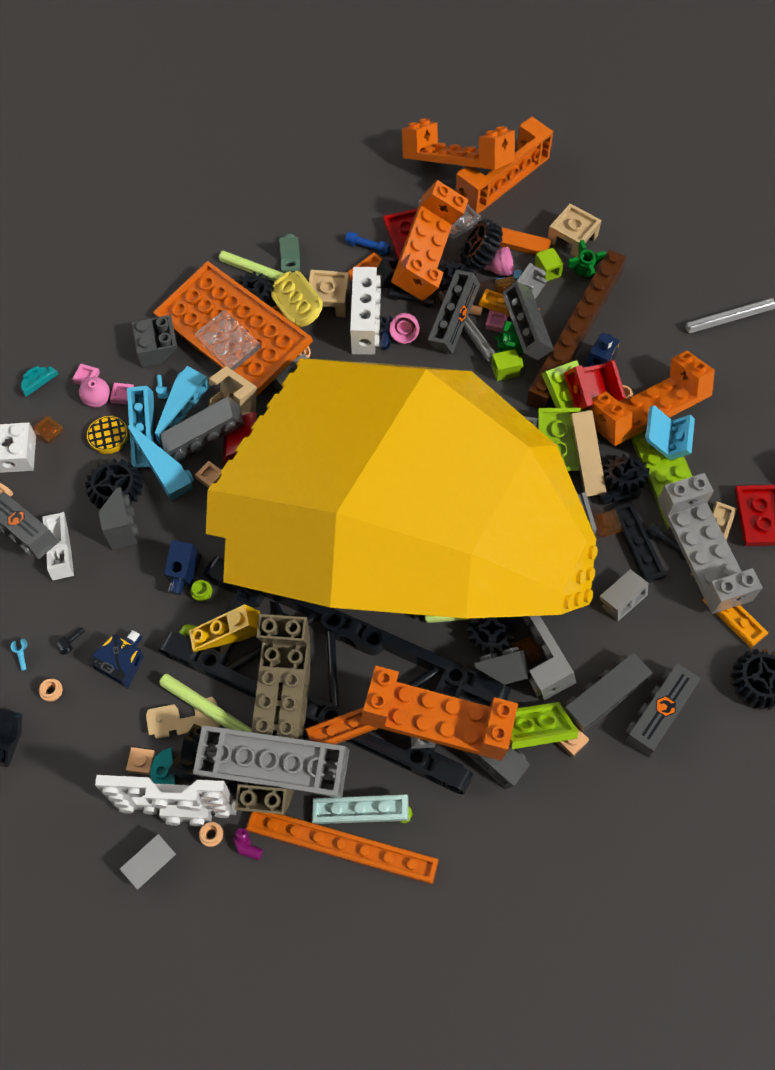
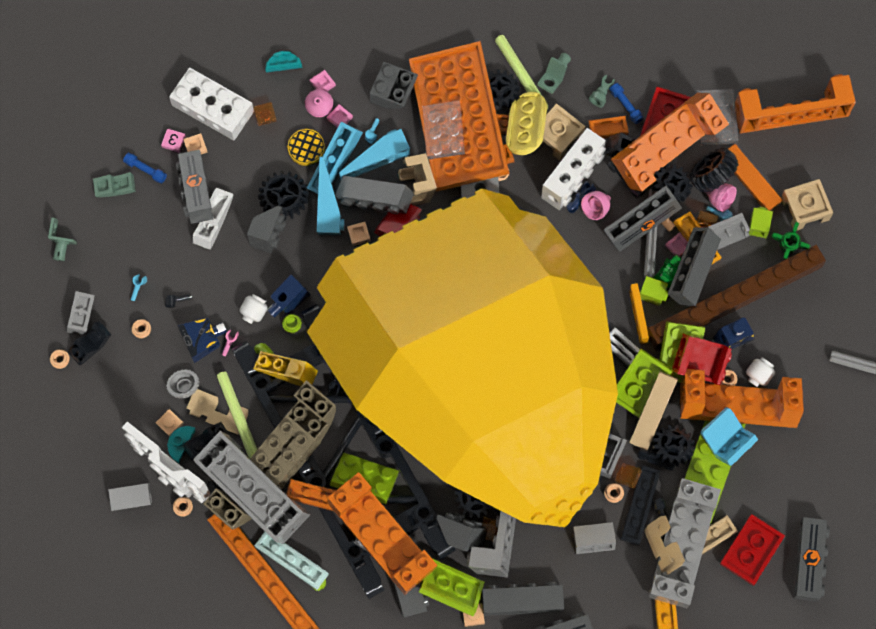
camera: 35 degrees right, 10 degrees up
(129, 713) = (183, 383): none -> light grey hat
(150, 646) = (229, 341): none -> bright pink hand
(154, 599) = (253, 308): none -> white head
(244, 845) = (199, 530): magenta arm -> none
(340, 250) = (598, 97): none -> sand green piece
(356, 682) = (378, 476): none -> lime plate
(422, 144) = (738, 42): orange plate -> none
(509, 389) = (638, 313): none -> light orange tile
(610, 541) = (614, 486): none -> light nougat plate
(645, 372) = (760, 372): none -> white head
(706, 559) = (667, 554): none -> tan piece

